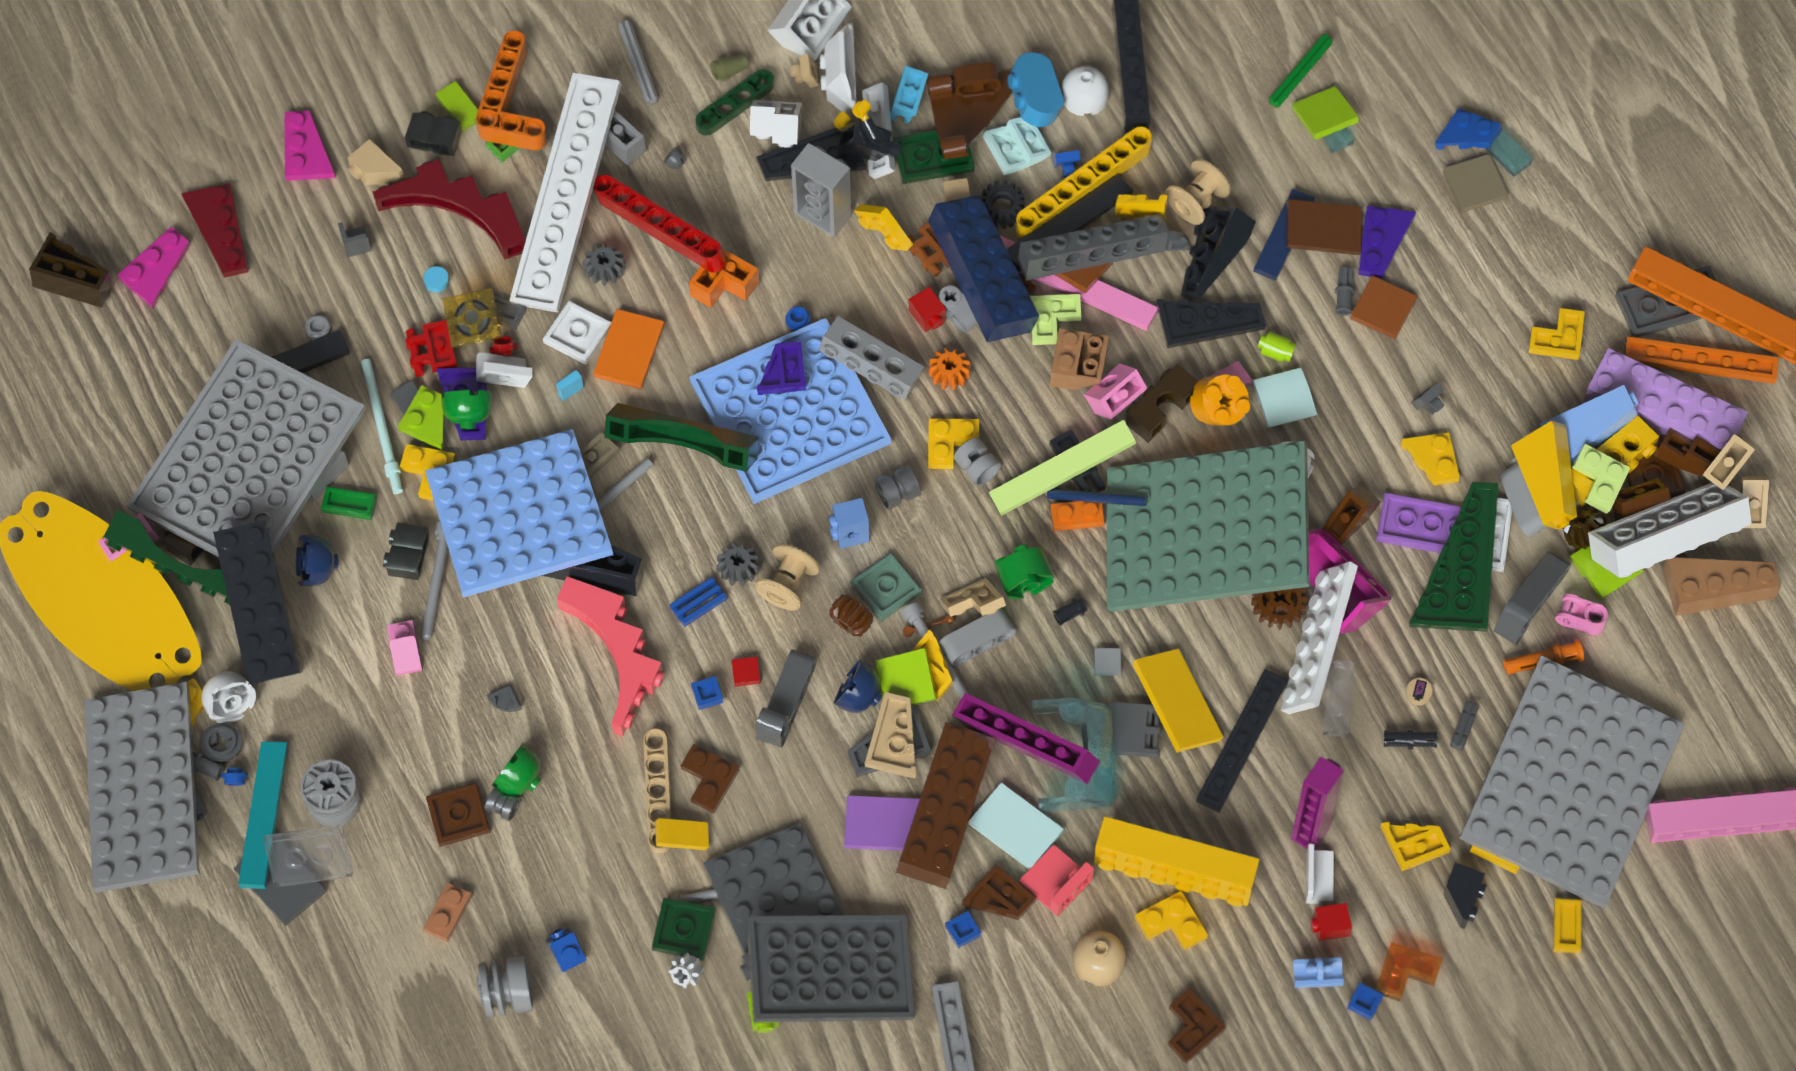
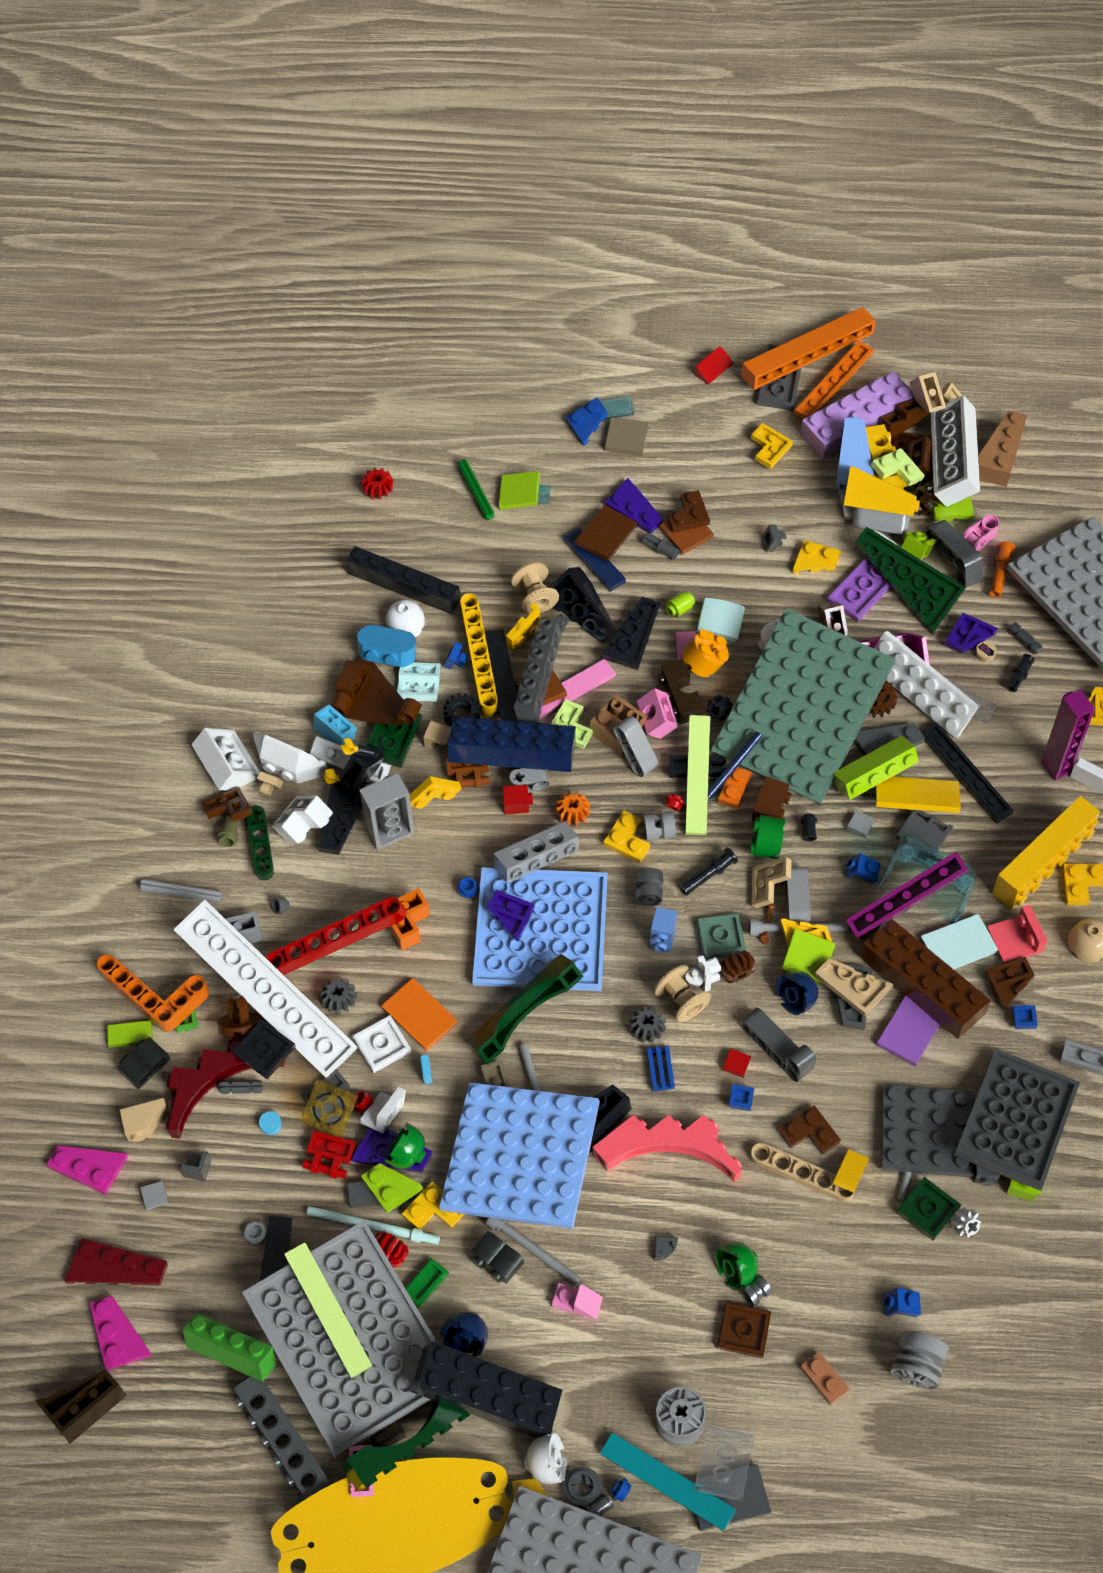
camera: 60 degrees left, 5 degrees down
(141, 454) = (247, 1393): none -> dark grey brick
(185, 362) = (229, 1347): none -> bright green brick
(257, 421) = (328, 1310): none -> yellowish green tile
(306, 221) = (154, 1195): none -> light grey tile
(359, 450) = (393, 1248): none -> red gear
(459, 233) = (241, 1087): none -> dark grey axle
(498, 226) = (264, 1049): none -> black plate
(520, 188) = (237, 1019): none -> reddish brown tile
(759, 48) = (230, 801): none -> reddish brown plate
(823, 586) = (705, 972): none -> white hips
(964, 541) = (715, 866): none -> black pin
(1017, 462) = (674, 802): none -> red plate
(1050, 684) = (863, 867): none -> blue bracket
(1055, 388) = (635, 746): none -> light grey beam
(1076, 557) = (772, 799): none -> reddish brown brick
(1163, 448) = (719, 707): none -> black gear
(1181, 640) = (875, 767): none -> lime brick
(1231, 642) = (874, 738): none -> dark grey wing
(1404, 302) = (692, 516): none -> reddish brown plate
(1430, 661) = (969, 633): none -> dark purple wing
(1516, 552) = (918, 544): none -> lime brick
(1637, 223) = (713, 365): none -> red slope

